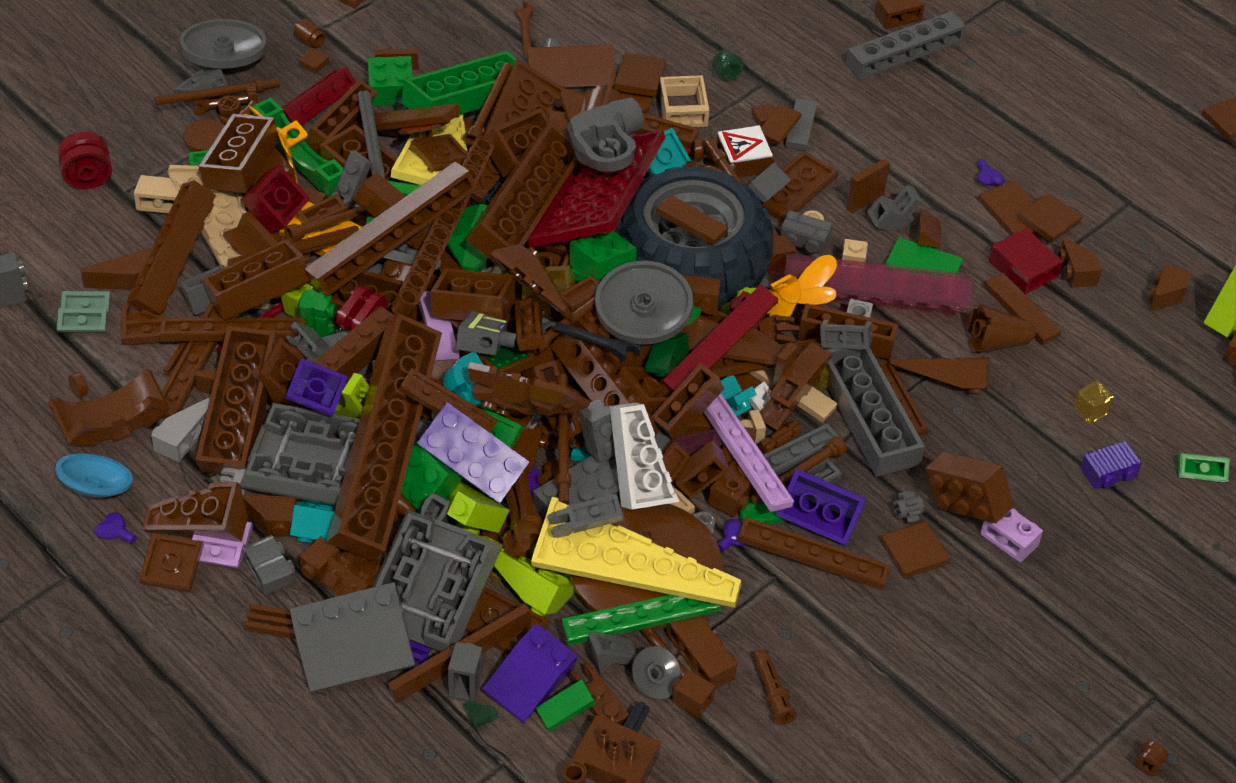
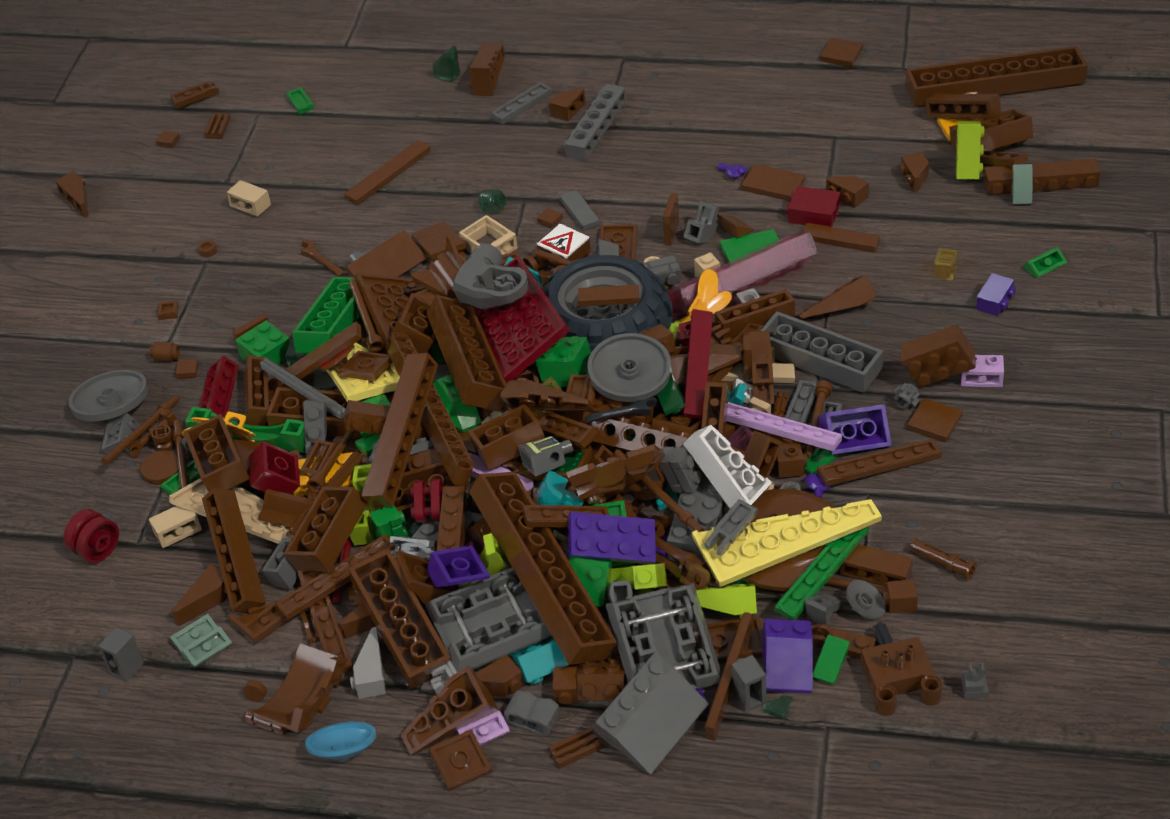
camera: 30 degrees left, 5 degrees down
(114, 527) = (389, 767): dark purple rock -> none
(780, 124) = (569, 215): reddish brown slope -> none
(846, 336) = (765, 314): dark grey hinge -> none
(997, 330) = (842, 258): reddish brown cone -> none
(1050, 217) = (801, 172): reddish brown tile -> none

